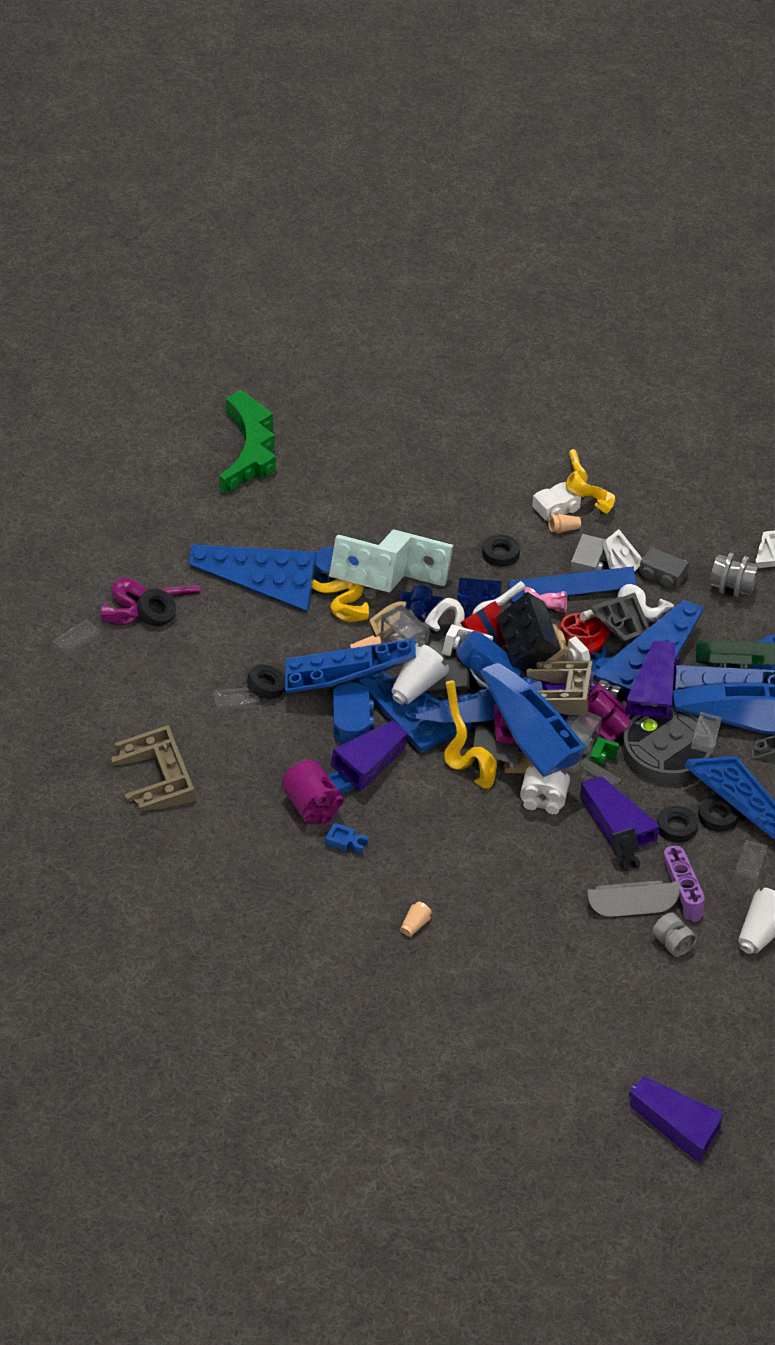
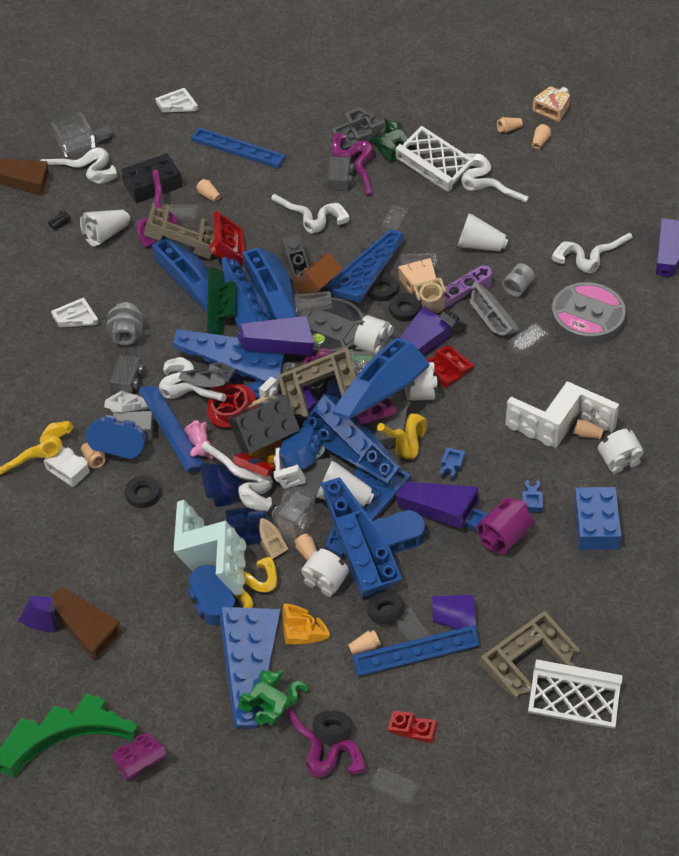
camera: 105 degrees left, 5 degrees up
(107, 793) = (581, 677): none -> white fence
(130, 664) = (408, 726): none -> red slope
(198, 480) = (140, 753): none -> magenta plate
(204, 568) = (270, 699): none -> green animal
(207, 691) = (415, 650): none -> blue tile
(234, 658) = (364, 643): none -> light nougat cone
(234, 733) = (454, 610): none -> dark purple slope
(281, 620) = (300, 626): none -> light orange brick
(287, 877) = (597, 518): none -> blue brick
(325, 636) = (324, 571): none -> white brick
(359, 476) = (86, 623): none -> reddish brown slope
(363, 926) = (621, 450): none -> white brick
(377, 442) = (39, 614): none -> dark purple slope
(426, 791) = (451, 461): none -> blue plate
(435, 885) = (568, 405): none -> white bracket
(568, 832) = (449, 366): none -> red slope
(569, 533) = (116, 437): none -> blue brick
(580, 919) = (527, 339): none -> clear tile
(595, 987) = (588, 313): none -> brick
(631, 765) = (372, 335): none -> white brick
(670, 835) = (431, 294): none -> tan piece
(678, 1025) = (583, 264): none -> white animal
(715, 846) = (416, 273): none -> light nougat torso
(744, 743) = (317, 275): none -> dark orange container

